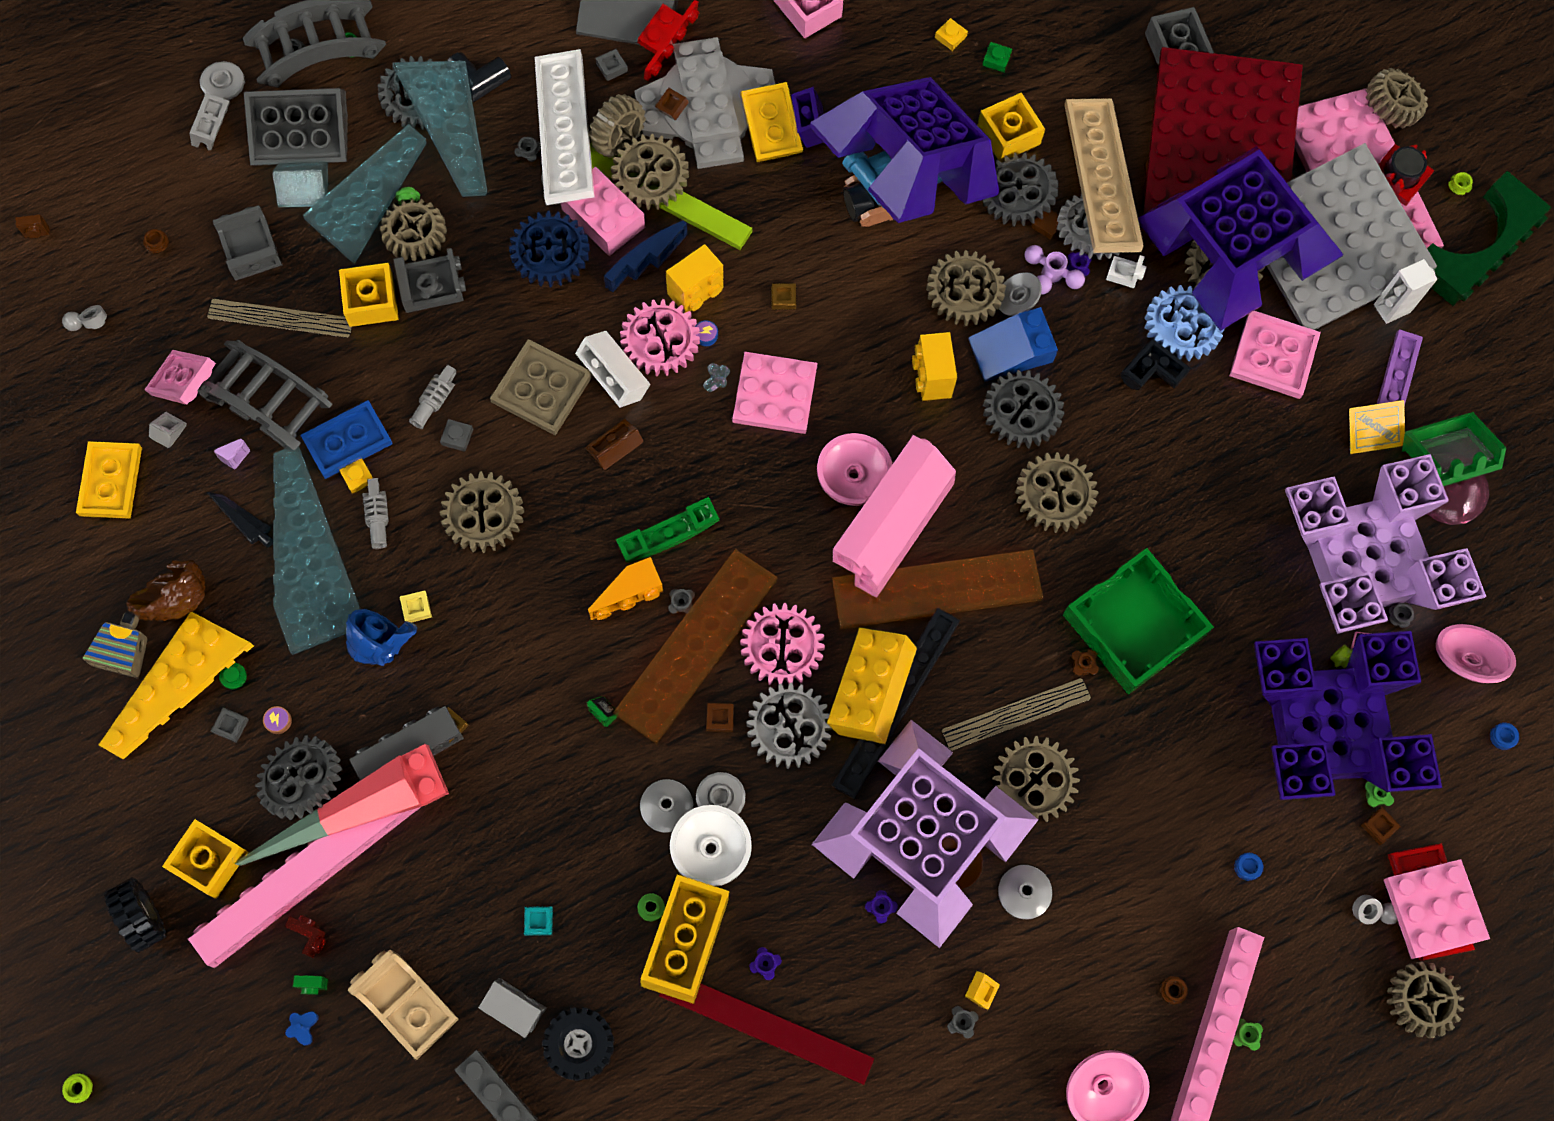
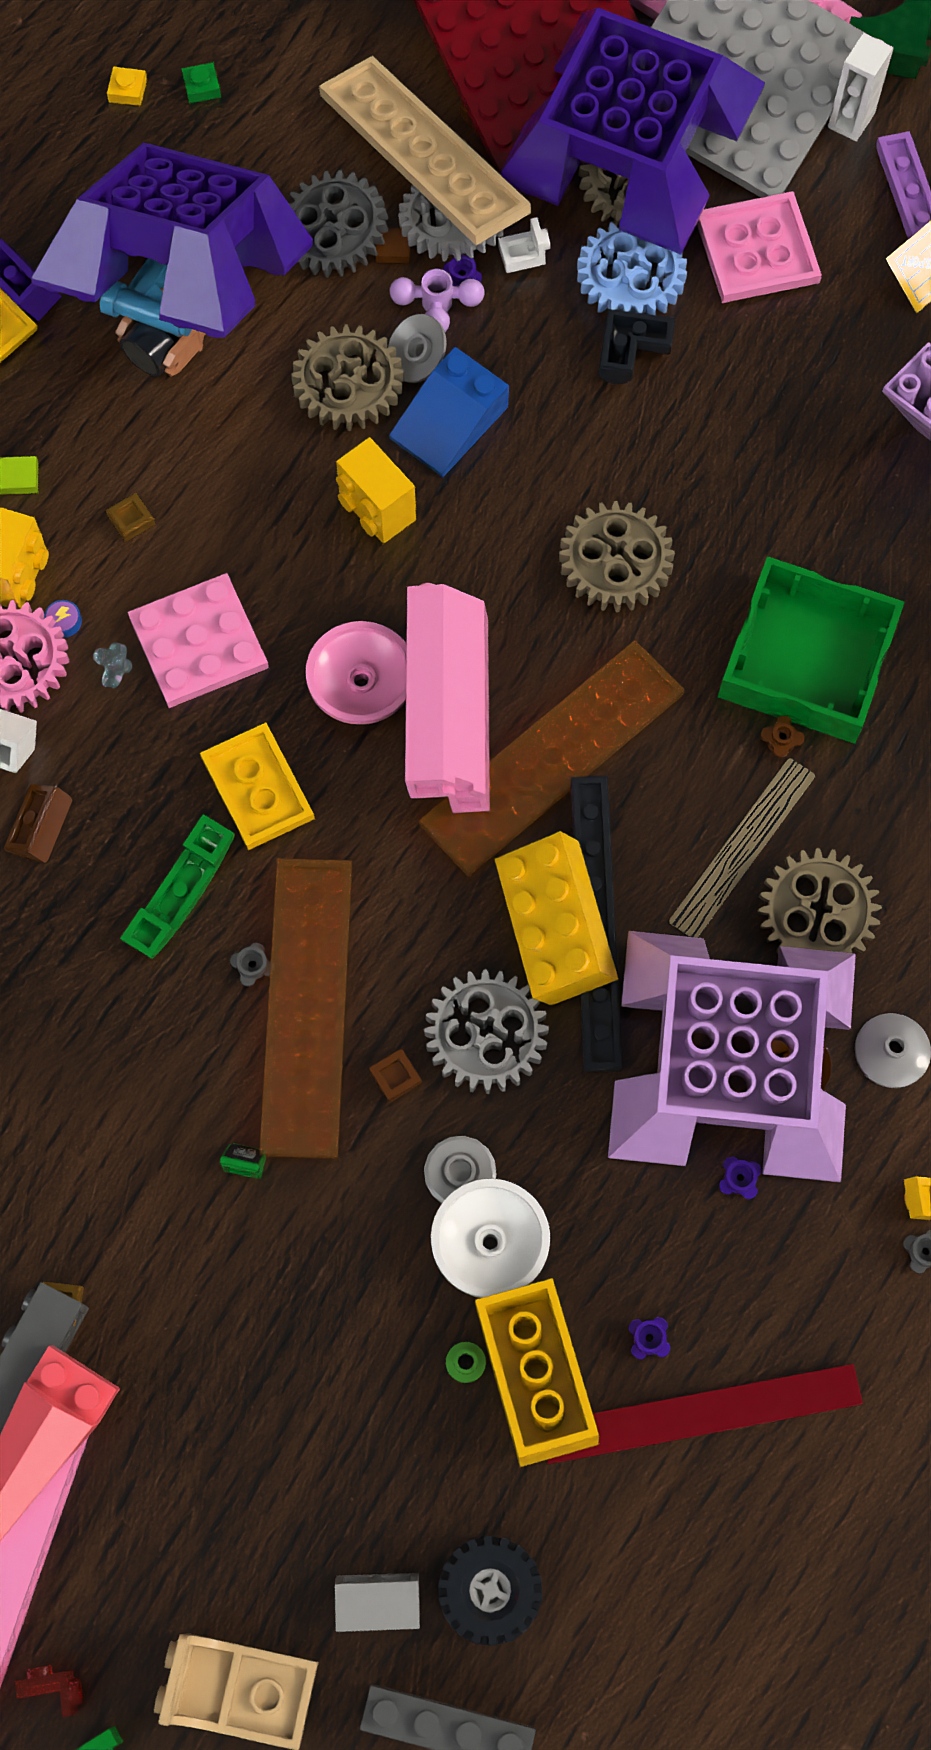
camera: 30 degrees left, 0 degrees up
(538, 921) = (336, 1472): teal tile -> none
(632, 585) = (178, 983): light orange slope -> none
(658, 817) = (393, 1245): light grey dish -> none
(752, 499) = (257, 786): none -> yellow plate
(759, 643) = (442, 924): bright pink gear -> none
(1011, 126) = (278, 149): yellow brick -> none
(1041, 421) = (544, 484): dark grey gear -> none

